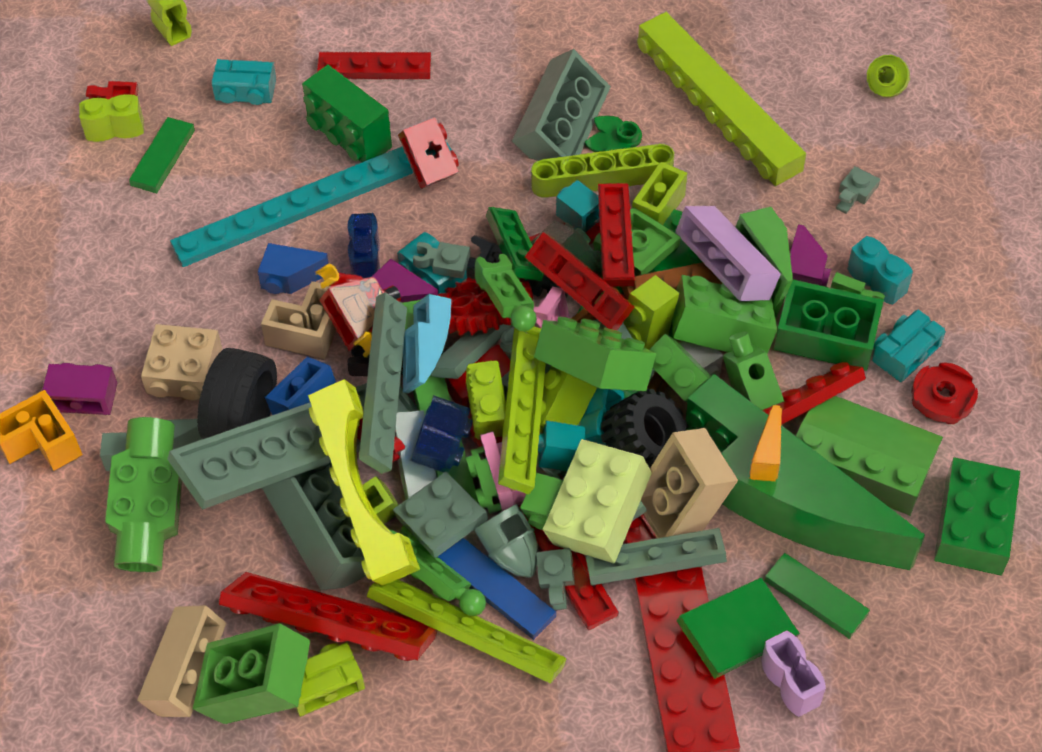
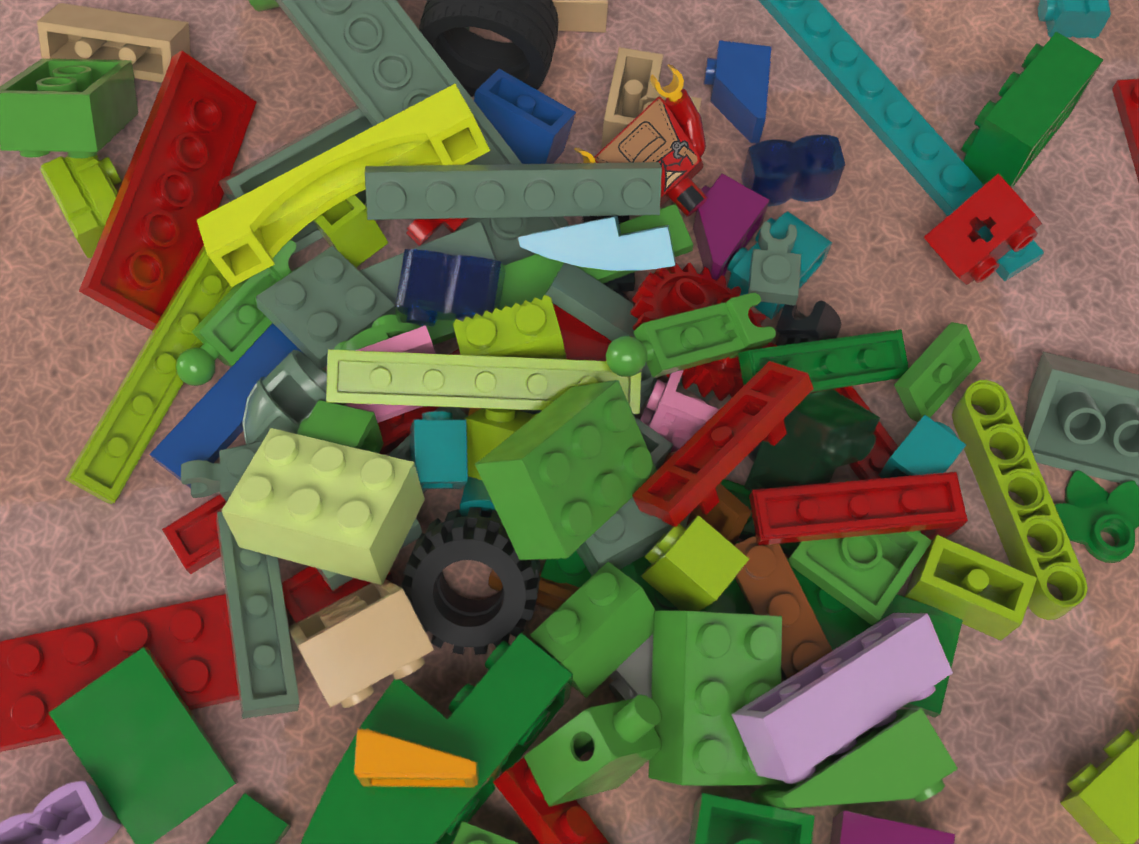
camera: 80 degrees right, 10 degrees up
(510, 190) = (938, 372): none -> bright green plate

